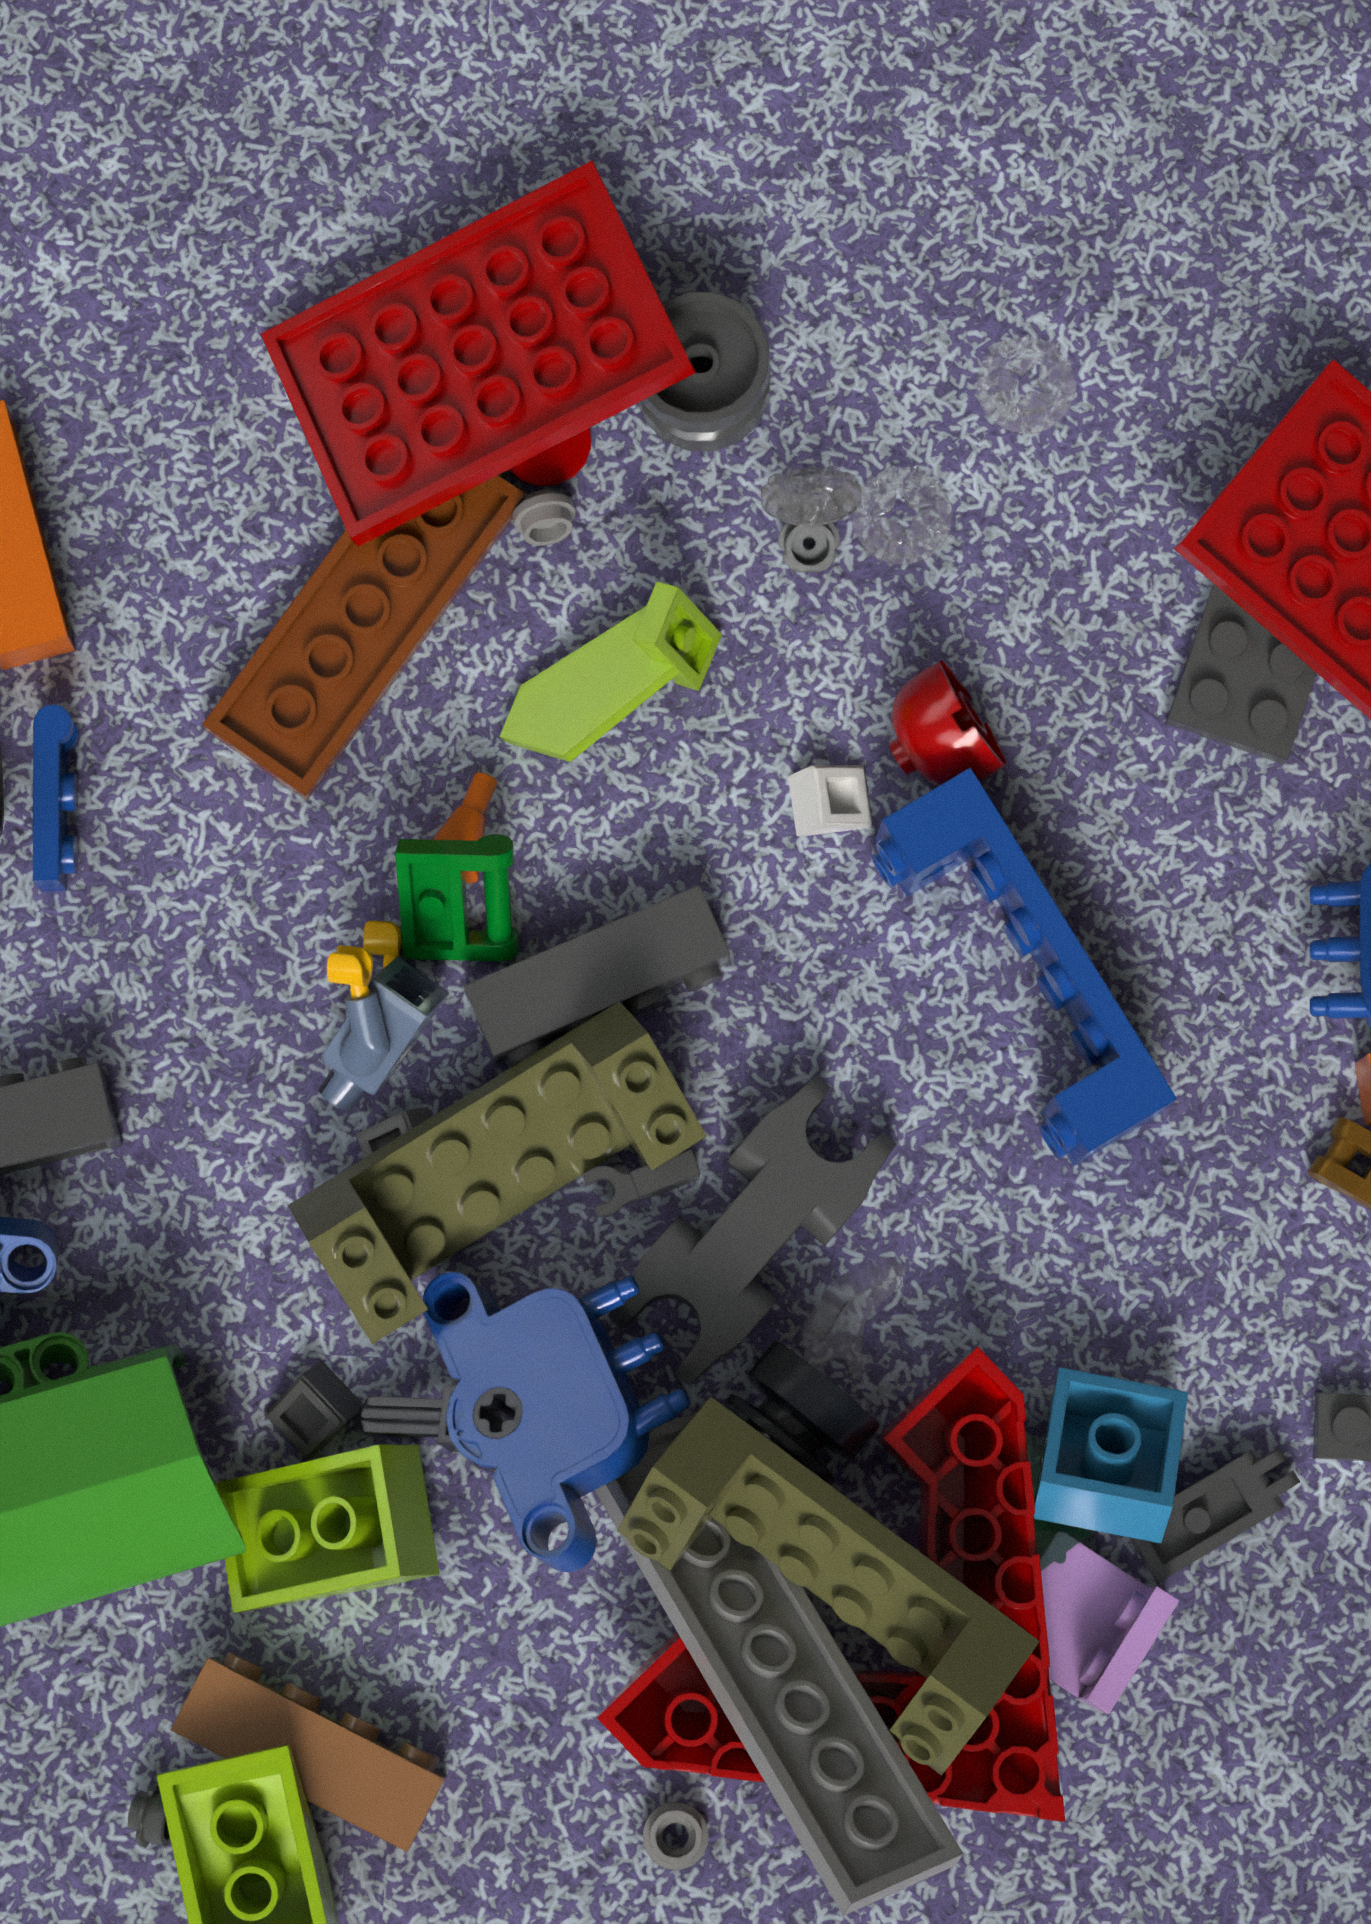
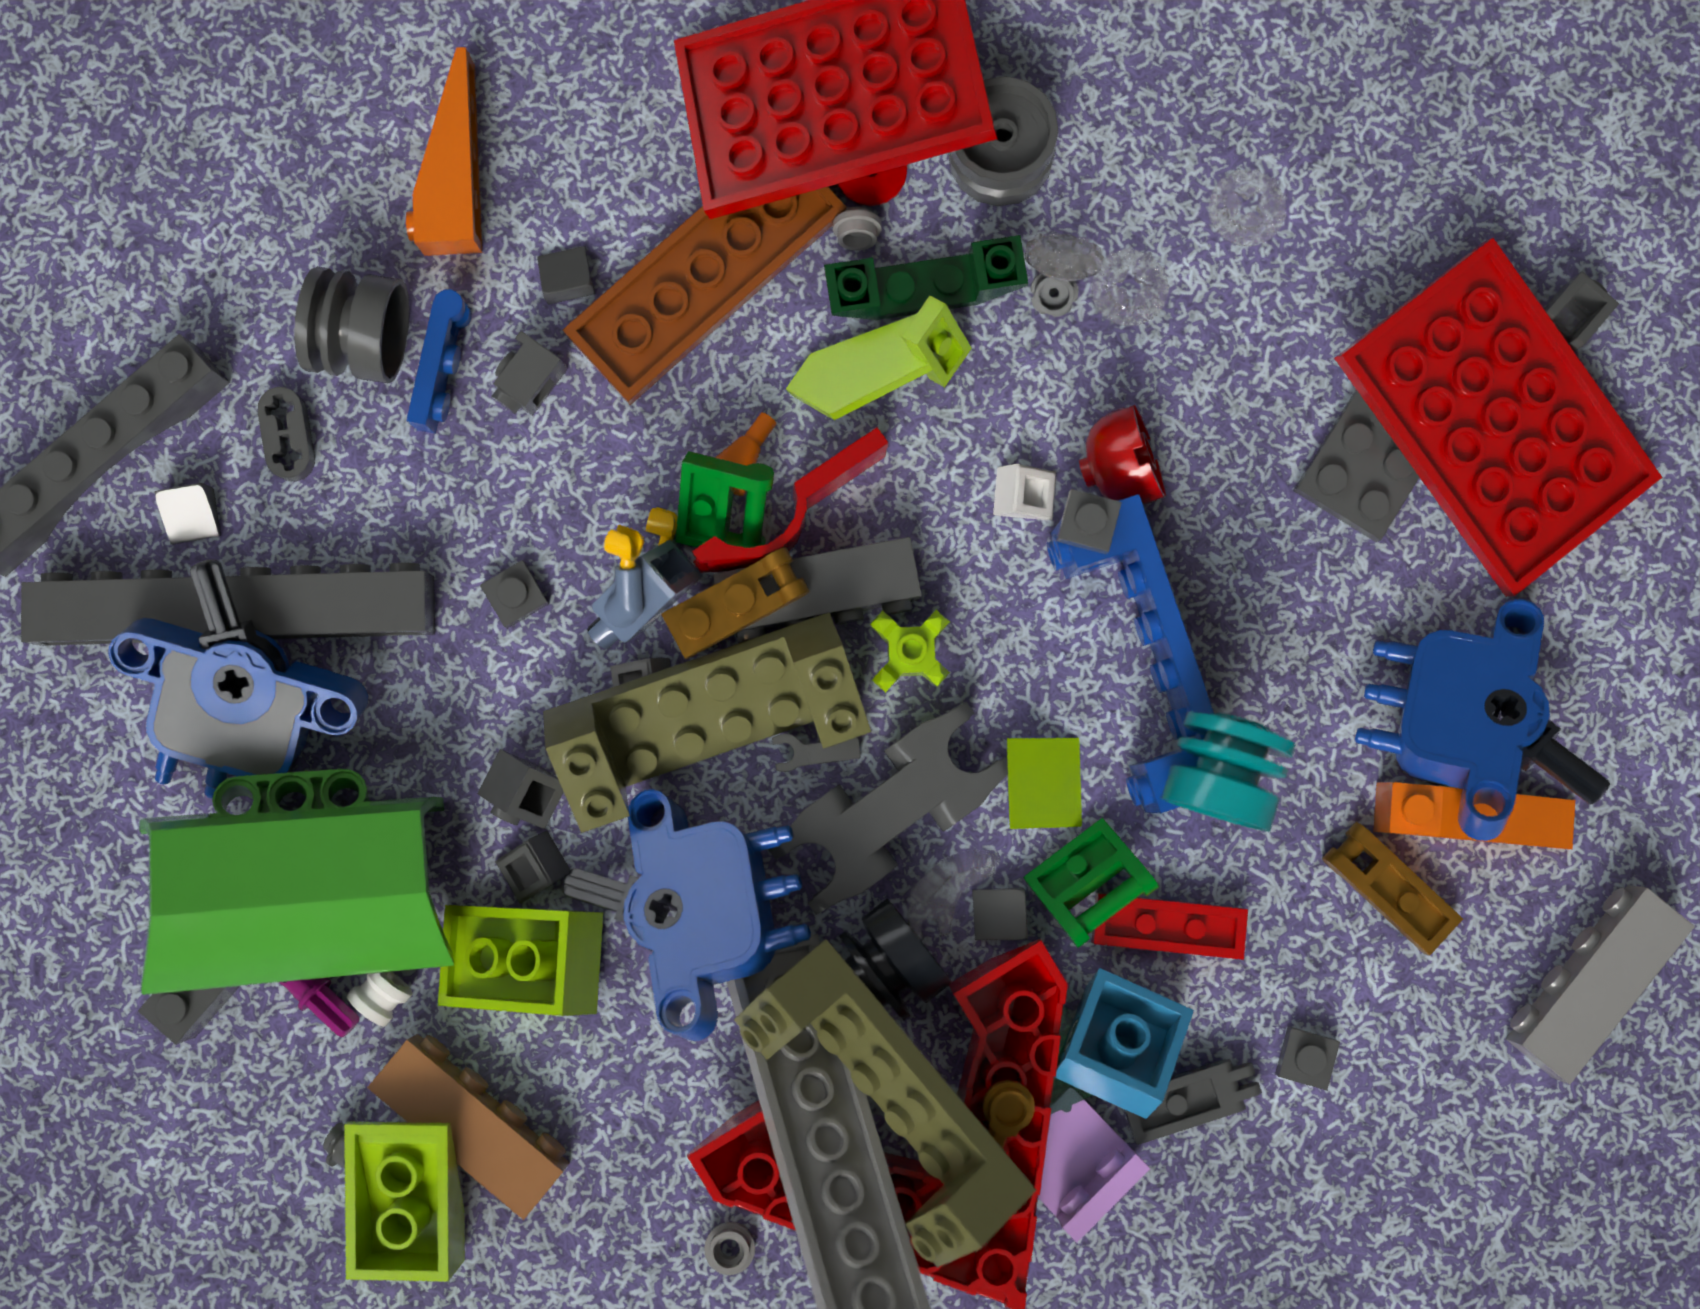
camera: 15 degrees right, 5 degrees up
(76, 1635) = (323, 1003): none -> magenta axle
(157, 1614) = (379, 996): none -> white wheel
(170, 792) = (527, 376): none -> dark grey brick
(189, 655) = (565, 275): none -> dark grey slope
(214, 1070) = (514, 594): none -> dark grey plate
(281, 1312) = (520, 790): none -> dark grey brick
(466, 961) = (807, 491): none -> red piece
(498, 1017) = (733, 604): none -> pearl gold plate
(615, 582) = (900, 290): none -> dark green slope
(731, 1025) = (910, 650): none -> lime rock
(916, 814) = (1088, 521): none -> dark grey plate
(920, 1334) = (1000, 914): none -> dark grey slope
(938, 1155) = (1044, 783): none -> lime sticker
(984, 1562) = (1008, 1109): none -> pearl gold plate
(1009, 1254) = (1082, 869): none -> green plate
(1136, 1300) = (1176, 928): none -> red plate
(1155, 1071) = (1229, 770): none -> teal wheel

